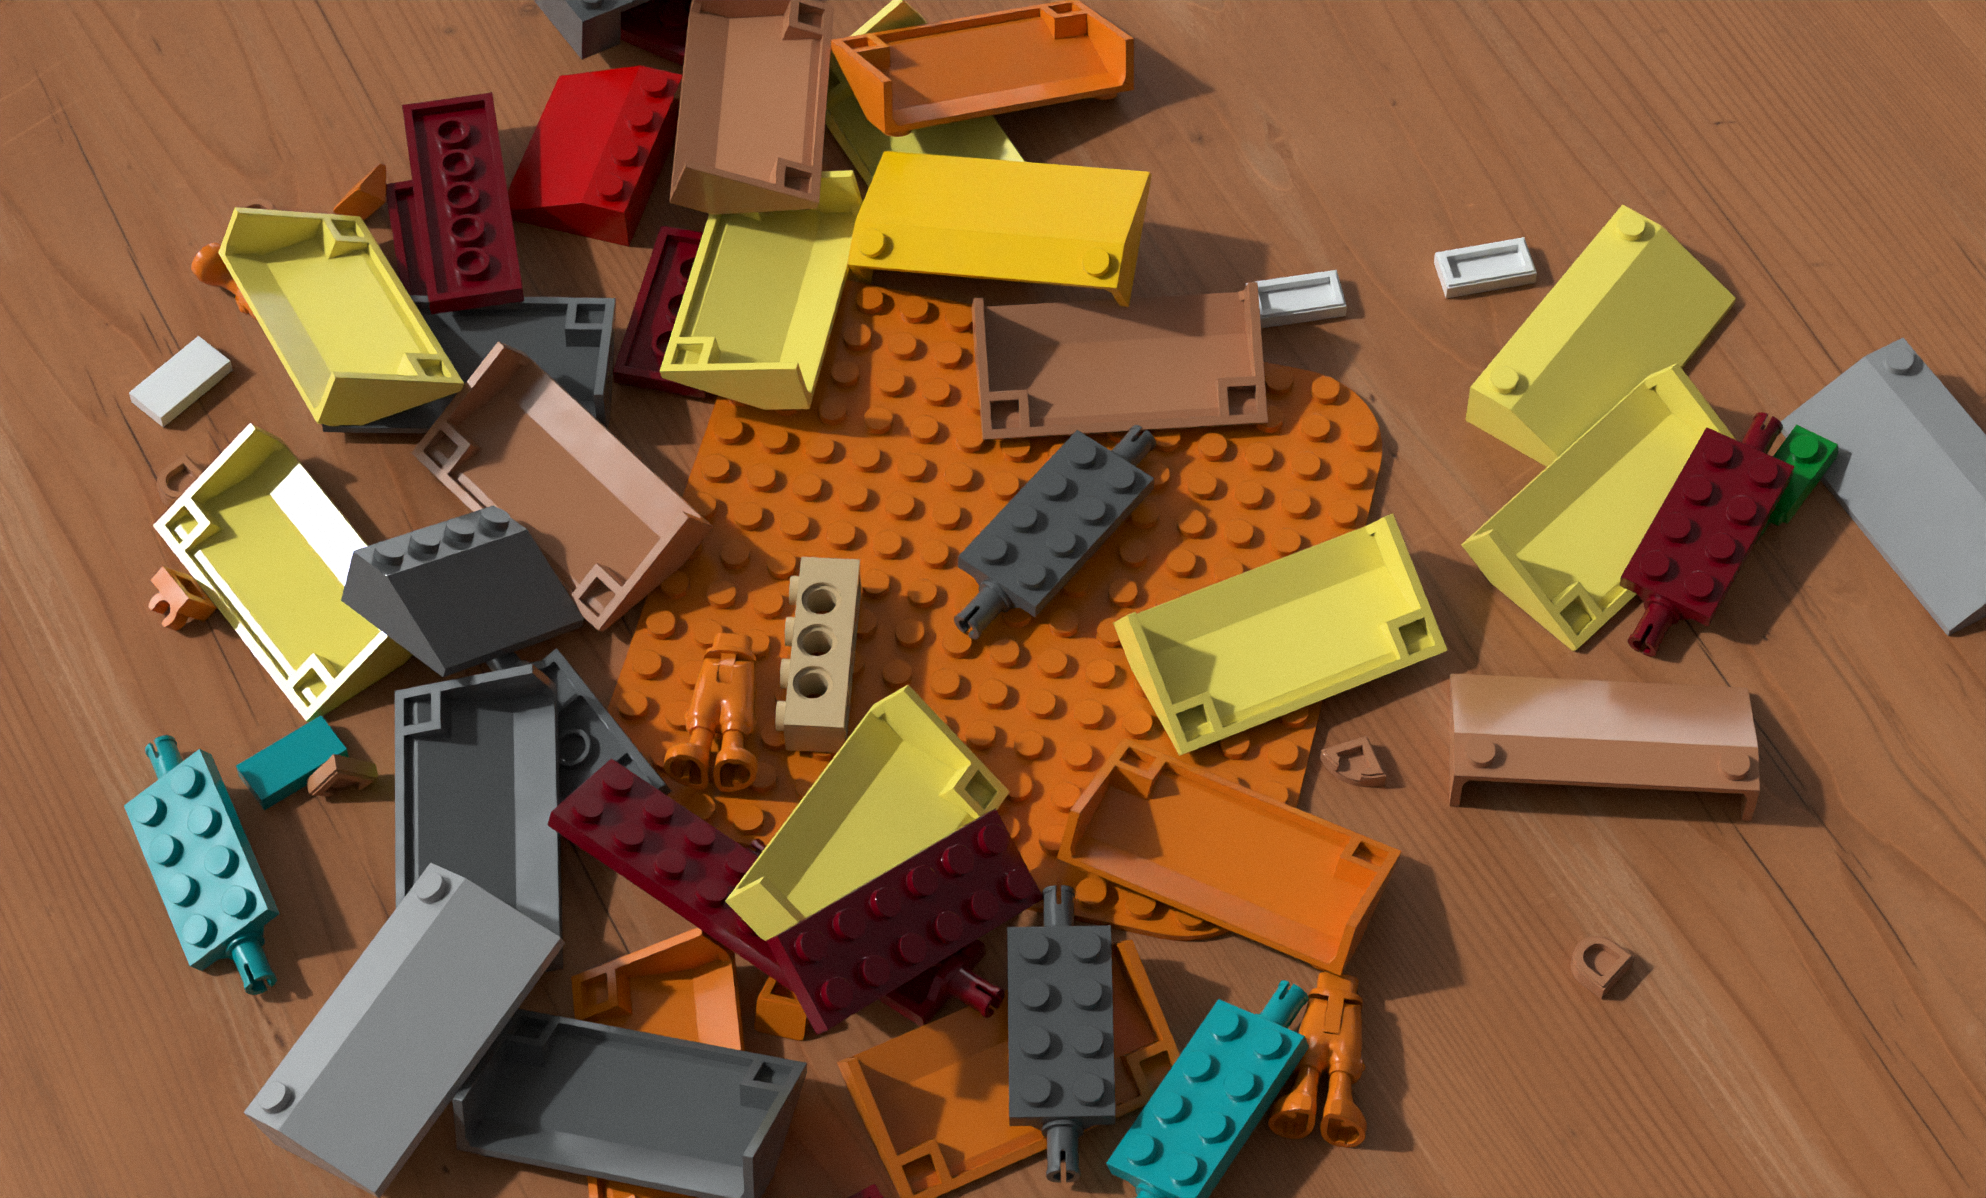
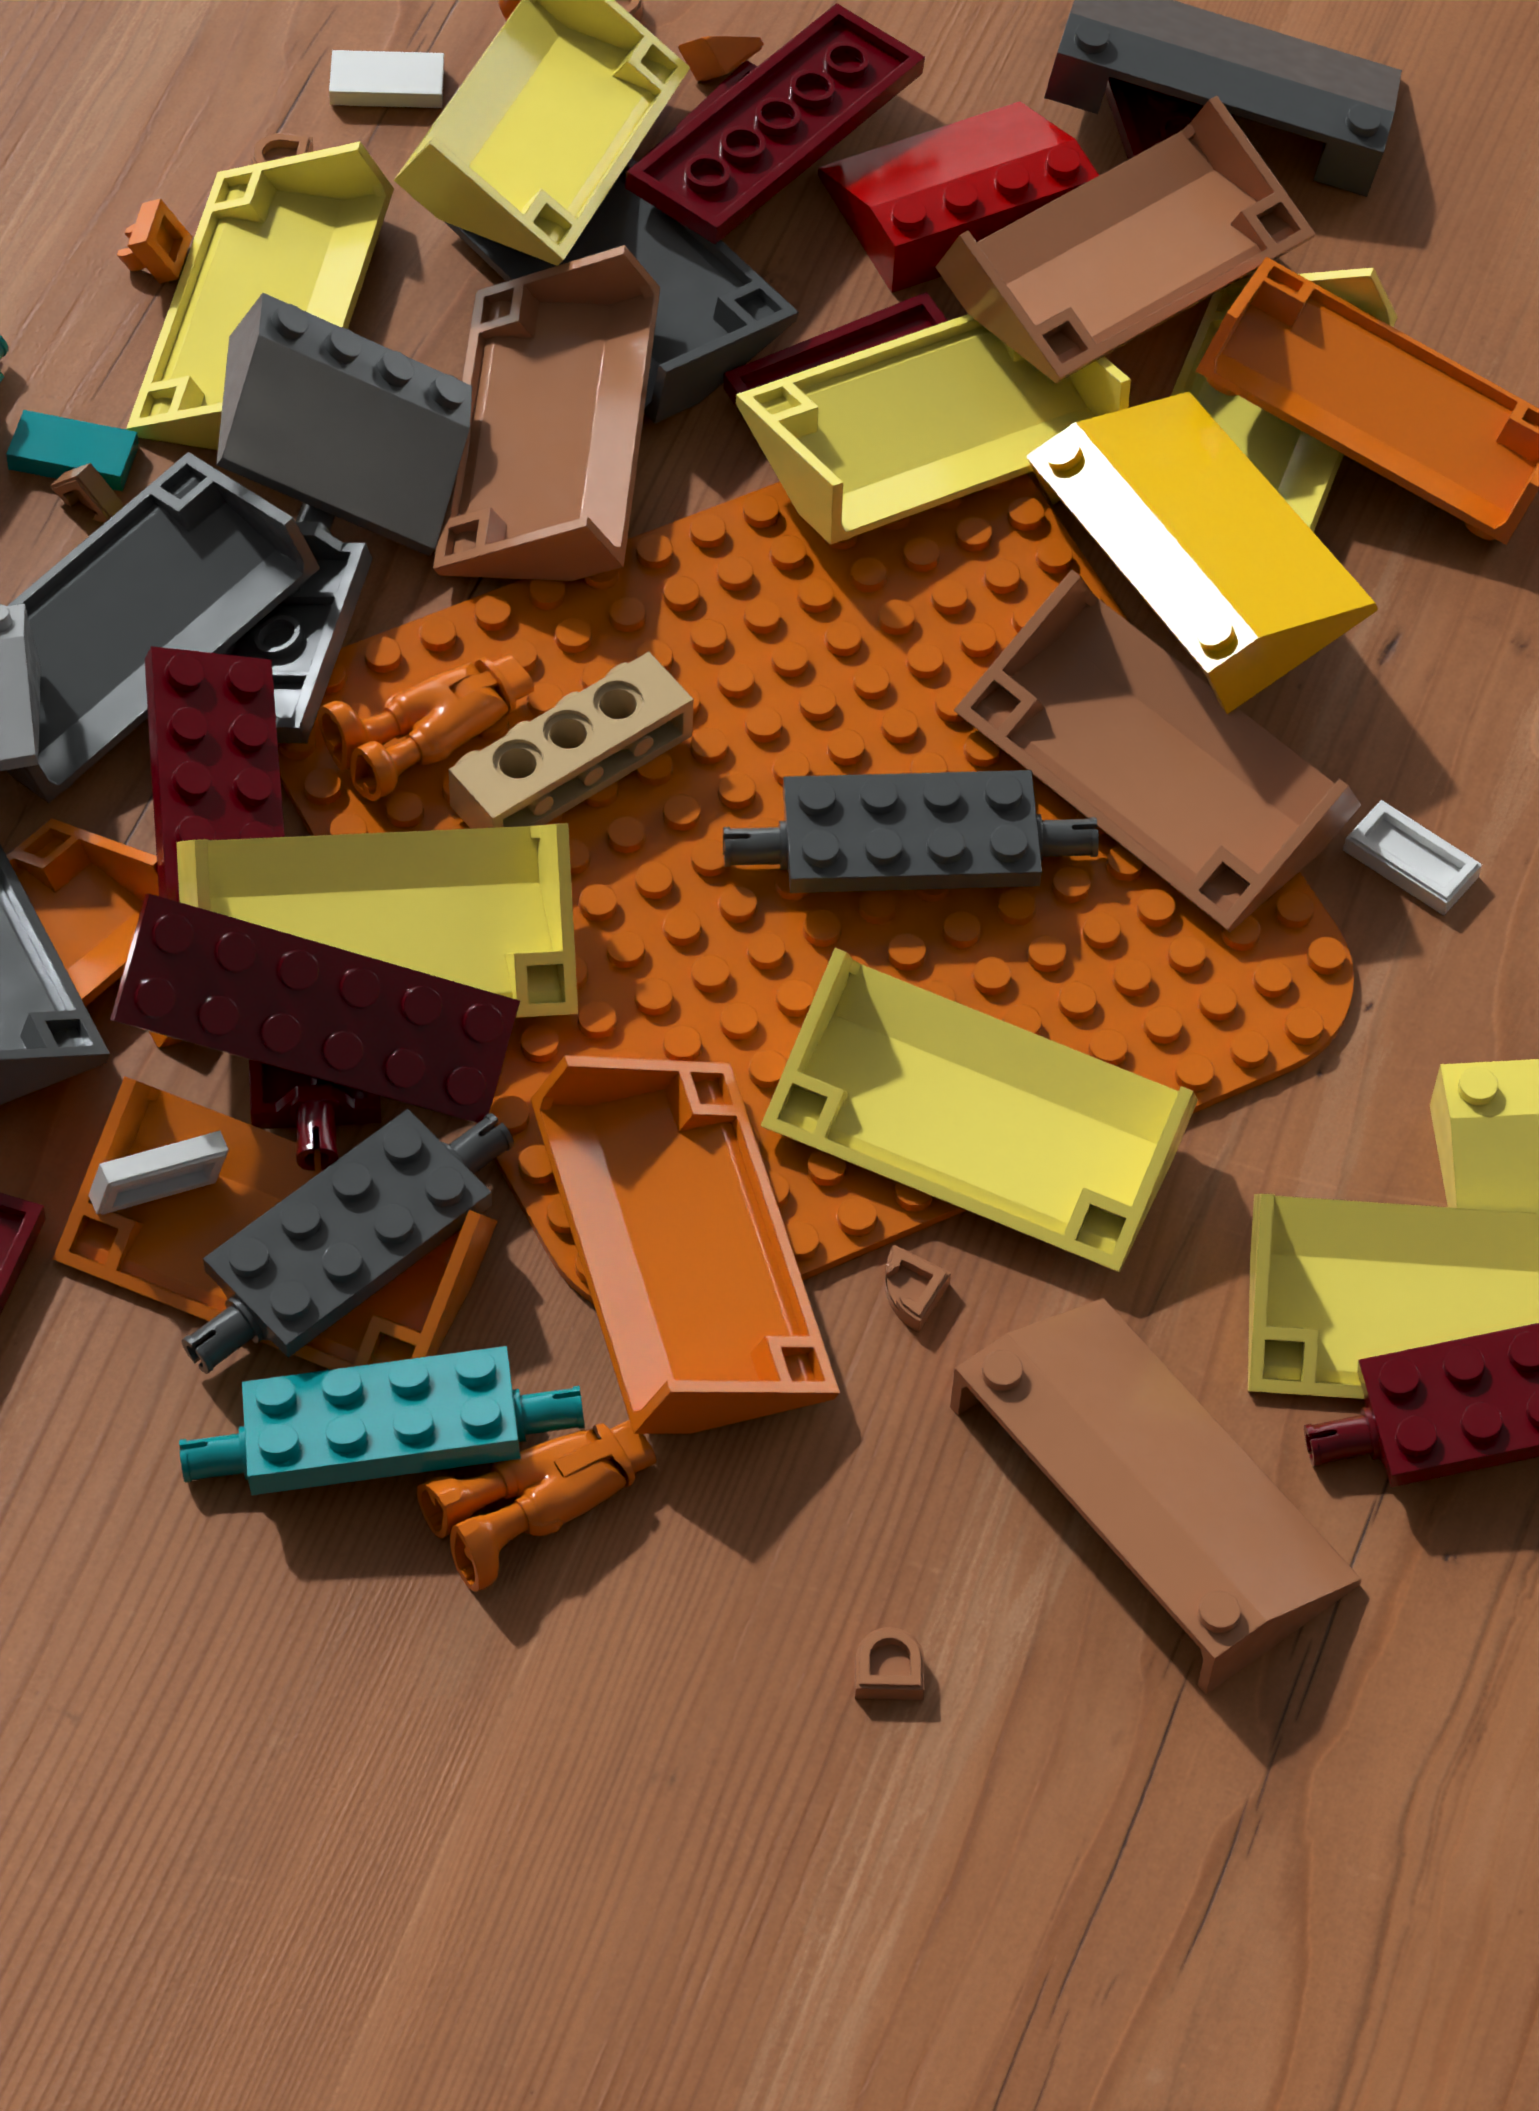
camera: 45 degrees right, 0 degrees up
(921, 1098) = (158, 1173): none -> white tile

